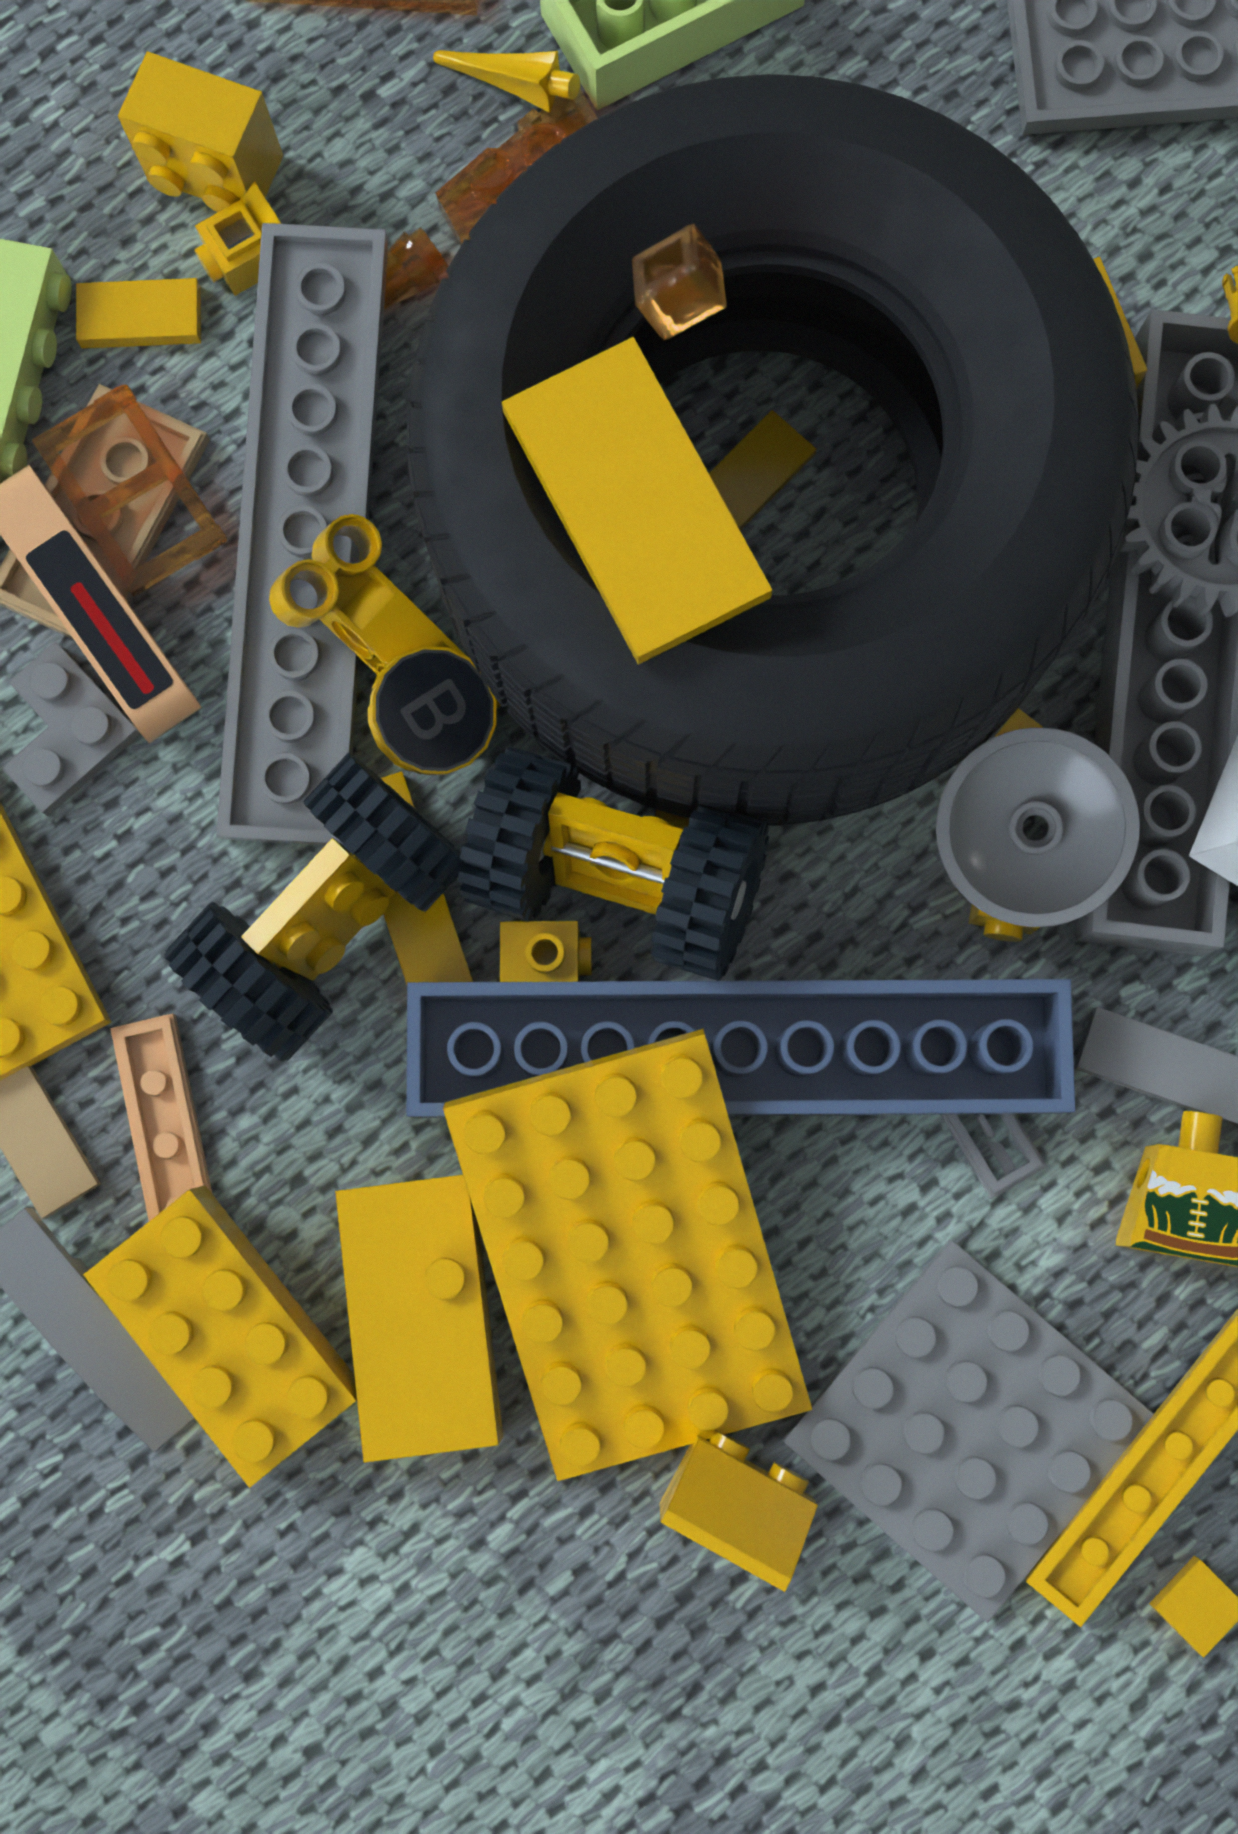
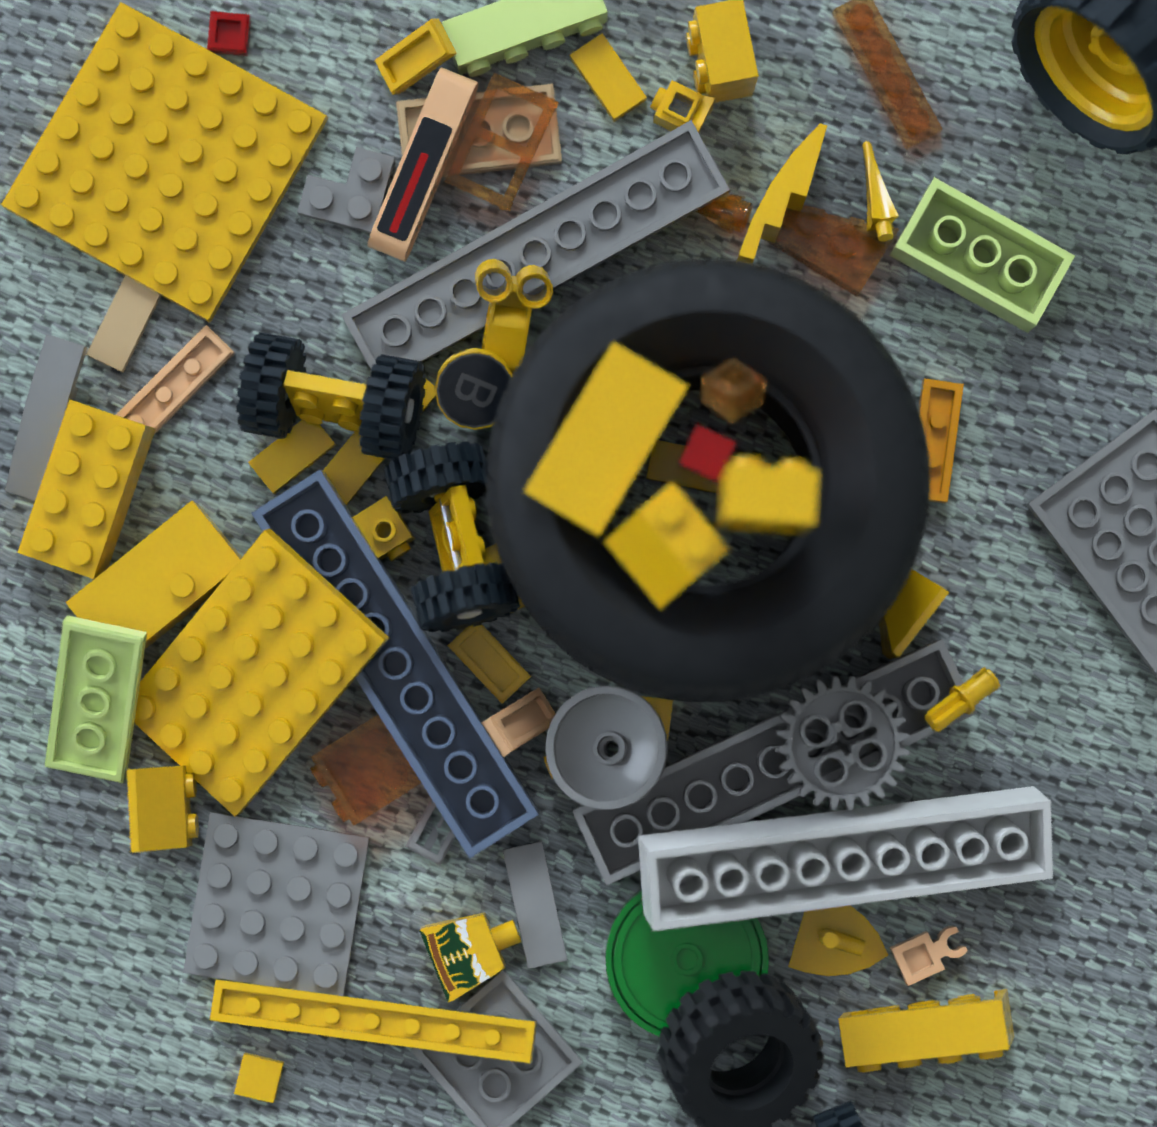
camera: 50 degrees right, 5 degrees up
(361, 1022) = (291, 456): none -> yellow tile
(432, 159) = (785, 191): none -> yellow slope
(525, 1505) = (95, 699): none -> yellowish green tile
(742, 386) = (707, 453): none -> red tile
(808, 929) = (489, 661): none -> yellow tile
(848, 497) = (666, 545): none -> yellow slope
(859, 1186) = (364, 771): none -> clear orange plate
(879, 289) = (767, 497): none -> yellow brick
(921, 932) = (520, 722): none -> light nougat tile

